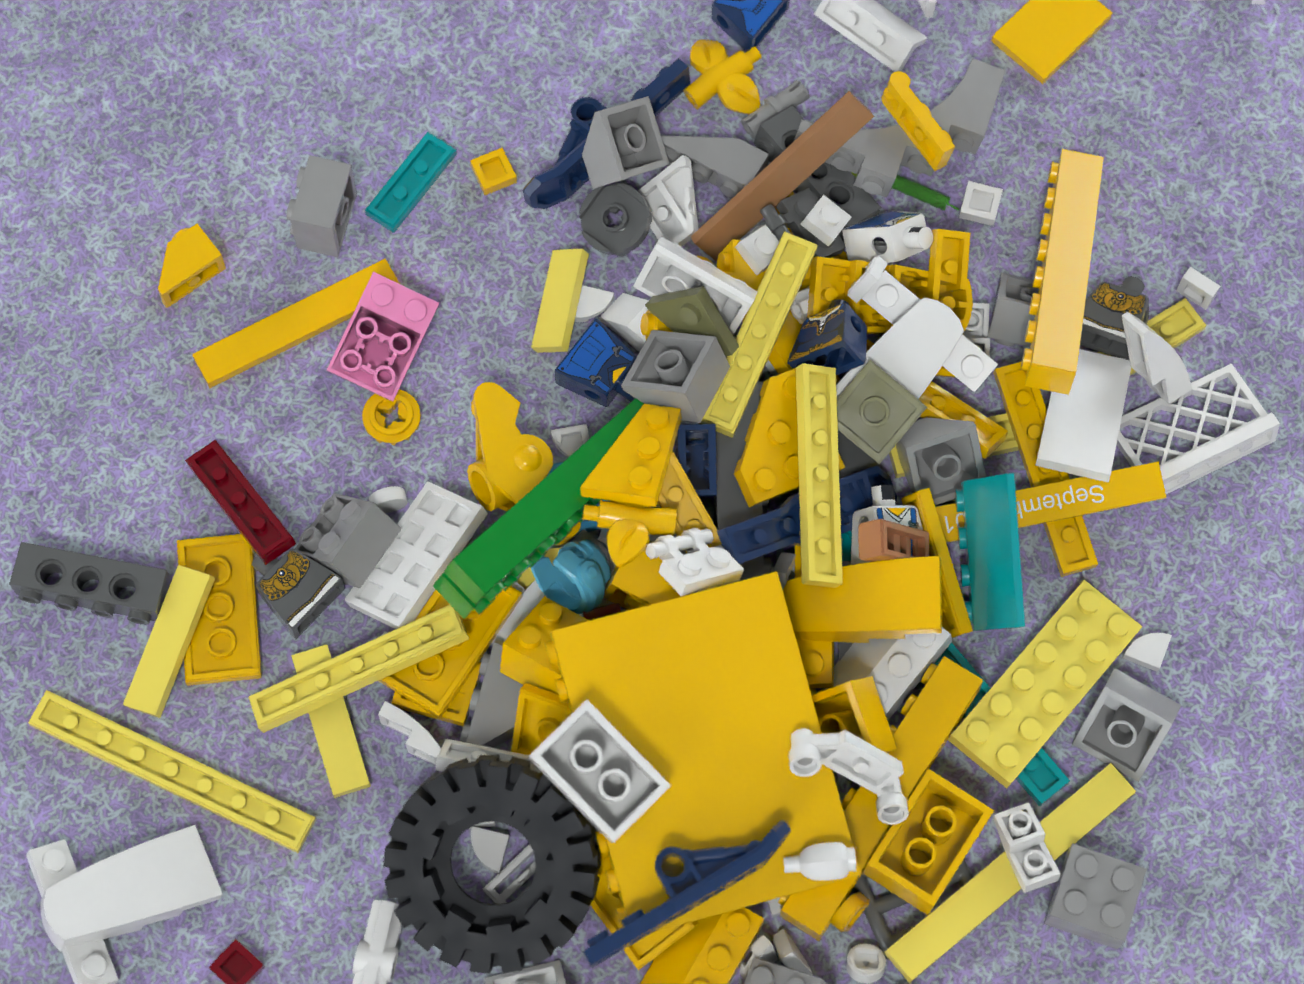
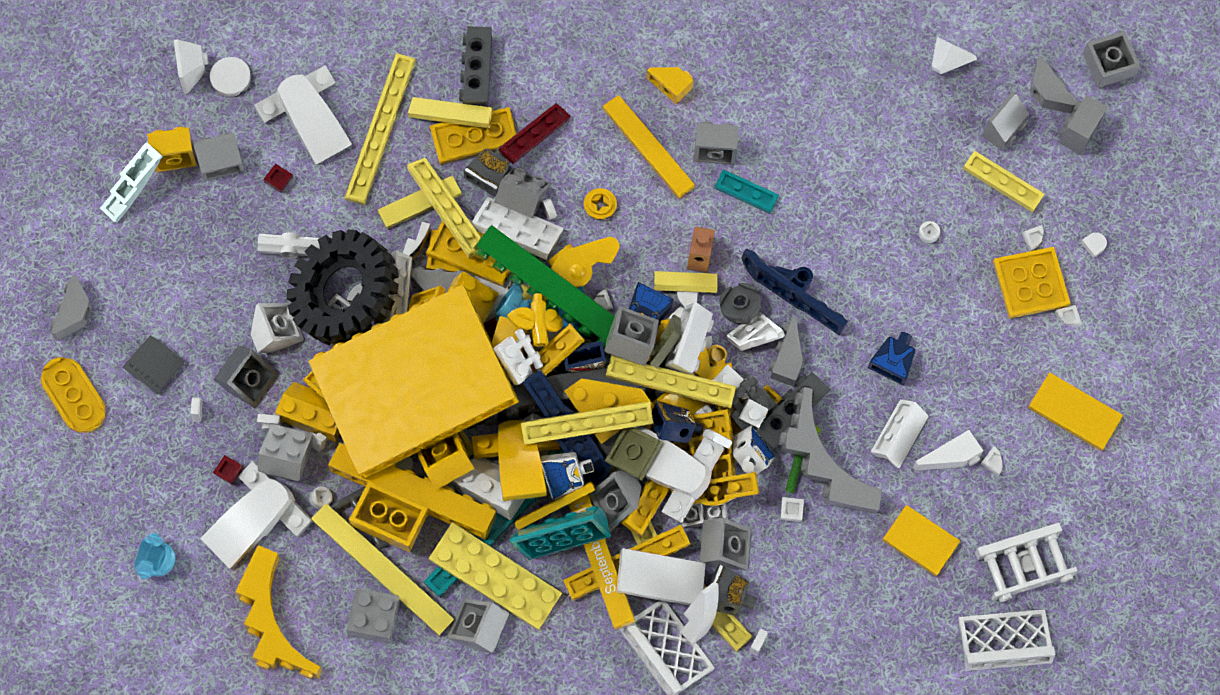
camera: 80 degrees right, 0 degrees up
(383, 336) = (643, 189): bright pink slope -> none
(493, 171) = (760, 233): yellow plate -> none
(506, 263) = (701, 247): none -> nougat torso
(599, 771) = (387, 319): white brick -> none
(623, 143) = (782, 296): light grey slope -> none
(637, 460) = (574, 319): yellow wing -> none
(703, 877) = (340, 385): dark blue piece -> none
(723, 77) = (846, 352): yellow plant -> none
(783, 174) = (777, 385): medium nougat tile -> none
(790, 953) = (320, 458): white tile -> none
(793, 95) = (833, 384): light grey pin -> none
(823, 861) = (359, 450): white plant -> none
(850, 912) = (347, 484): yellow tile -> none
(855, 761) = (417, 458): white plate -> none
(889, 540) = (552, 459): nougat slope -> none
(917, 121) = (825, 454): yellow plate -> none
(1025, 847) = (394, 572): white slope -> none
(1064, 272) = (746, 552): yellow brick -> none
(1148, 650) = (526, 635): white tile -> none

